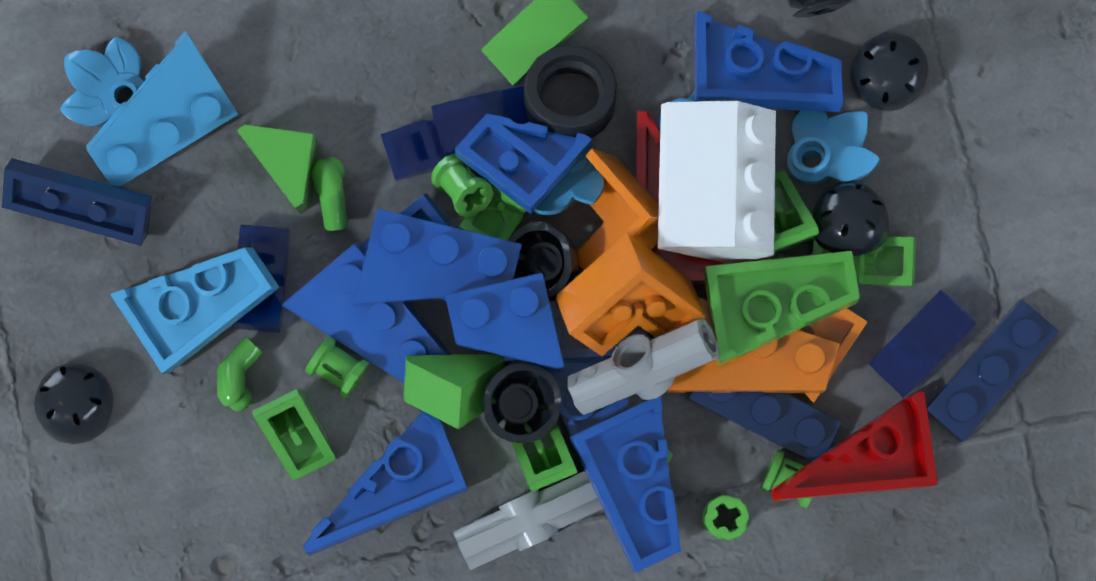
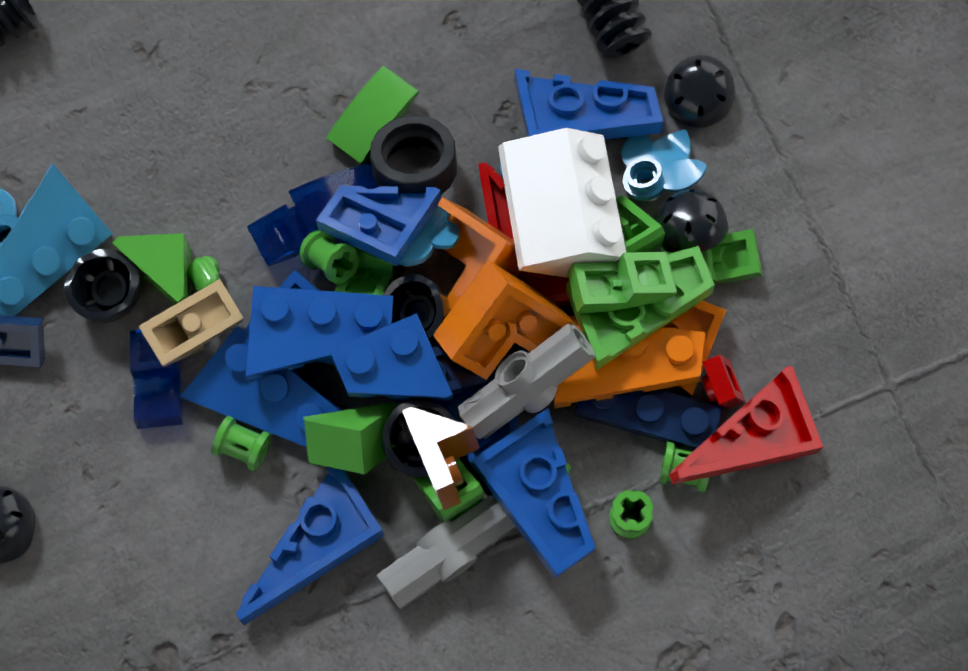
camera: 10 degrees left, 10 degrees down
(194, 306) = (94, 414): dark azure wing -> none
(226, 173) = (110, 289): none -> black helmet
(231, 375) = (143, 470): bright green arm -> none
(295, 434) = (210, 511): bright green slope -> none
(306, 234) = (191, 323): none -> tan slope
(539, 415) = (439, 445): none -> slope
(763, 281) = (623, 284): none -> bright green slope
(847, 397) = (722, 382): none -> red plate
(922, 343) = (780, 322): clear blue slope -> none
(991, 370) = (849, 337): dark blue plate -> none

